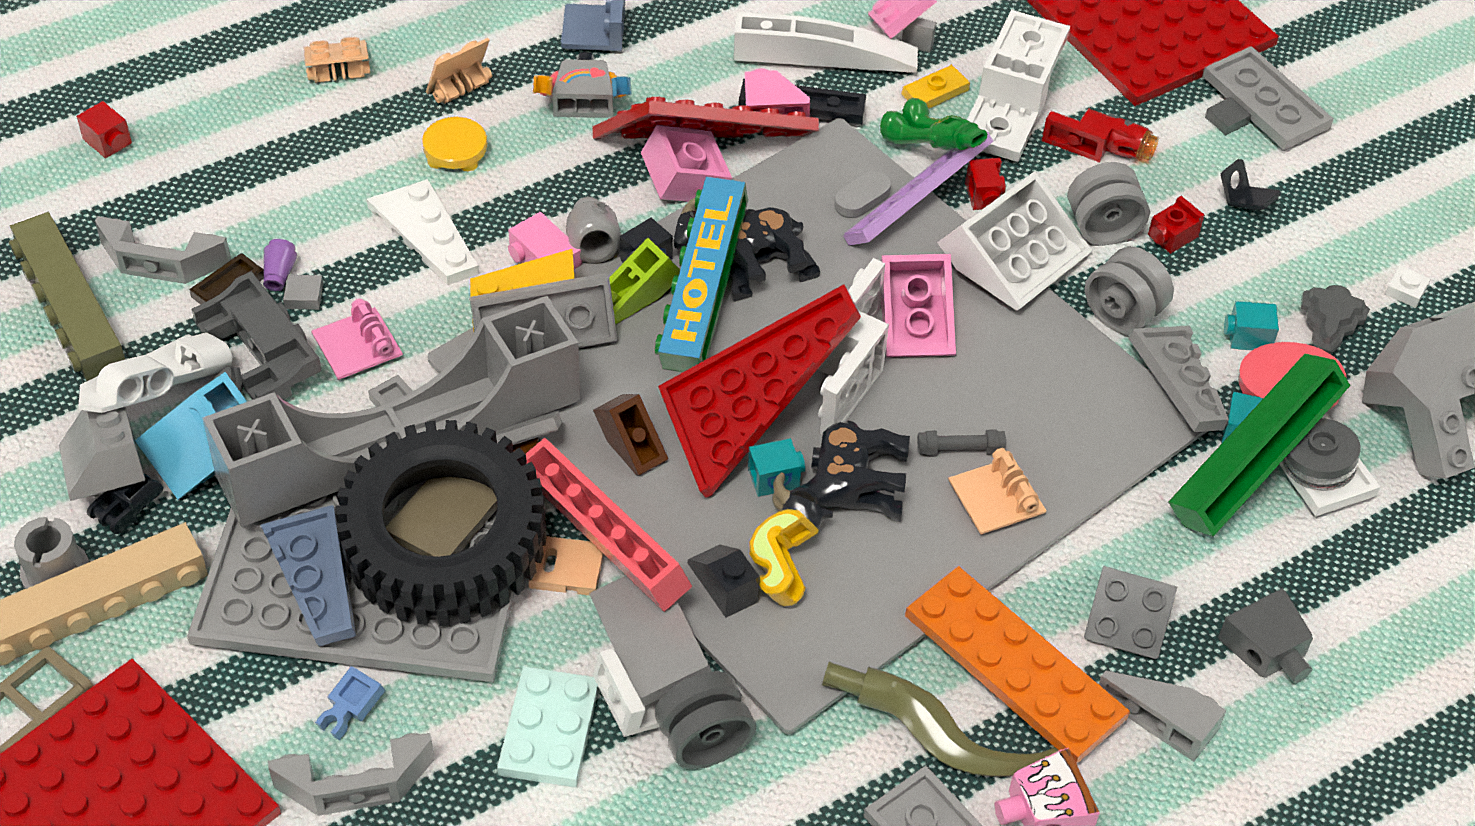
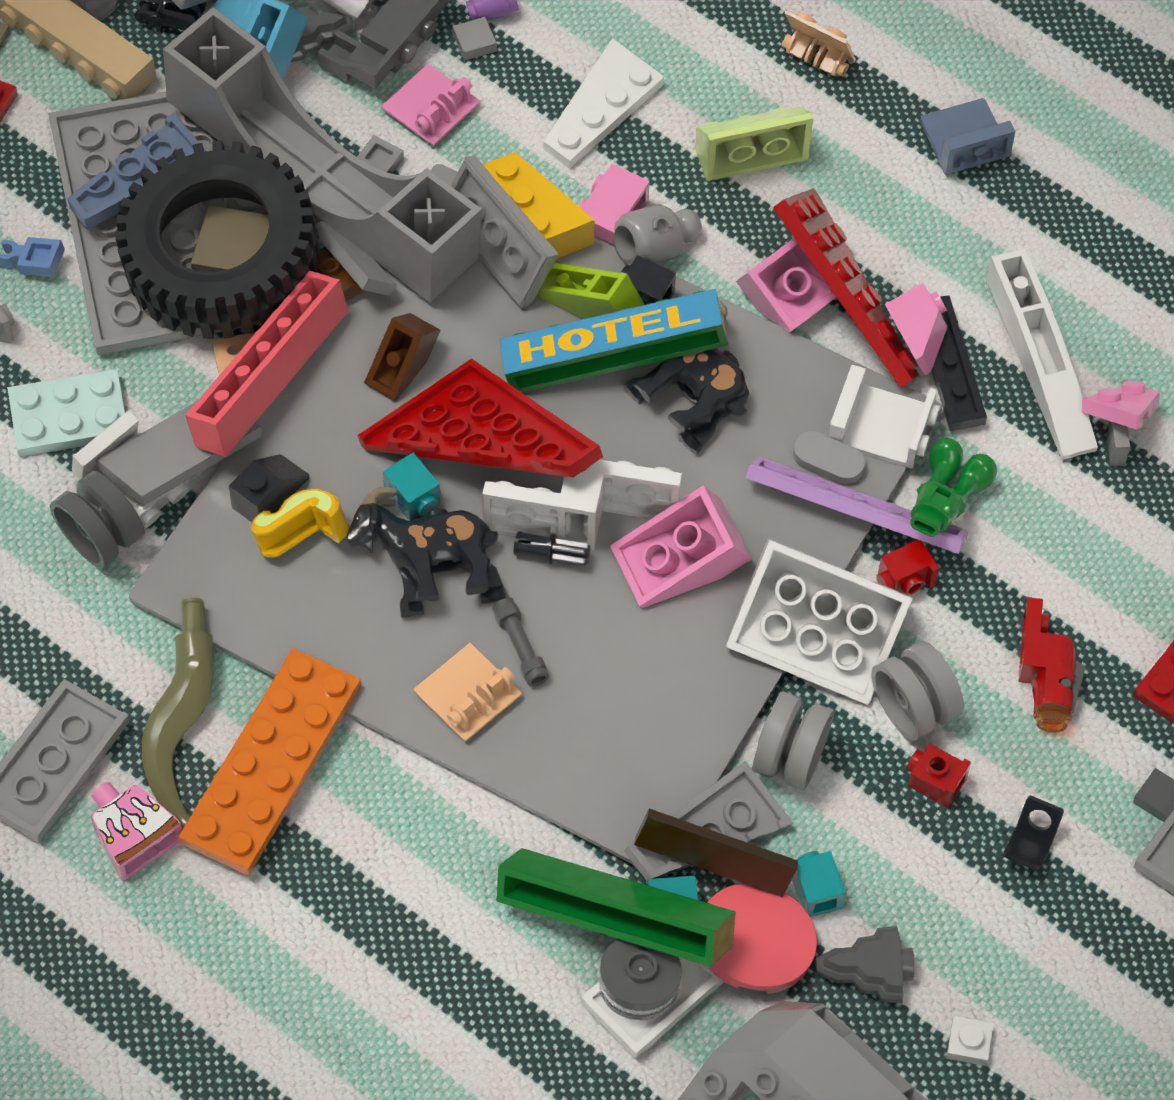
camera: 70 degrees right, 10 degrees up
(454, 143) = (725, 80): yellow tile -> none
(531, 139) = (754, 142): none -> yellowish green slope
(582, 88) = (857, 154): light grey torso -> none
(846, 149) = (882, 421): none -> white panel
(878, 391) = (551, 549): none -> black axle
(937, 86) = (1045, 485): yellow plate -> none
(1017, 81) = (1067, 552): white bracket -> none
(1130, 612) = (381, 847): bracket -> none
(1167, 711) = (265, 920): light grey slope -> none
(1221, 367) = (716, 852): none -> dark brown tile
(1269, 637) = (395, 983): dark grey torso -> none

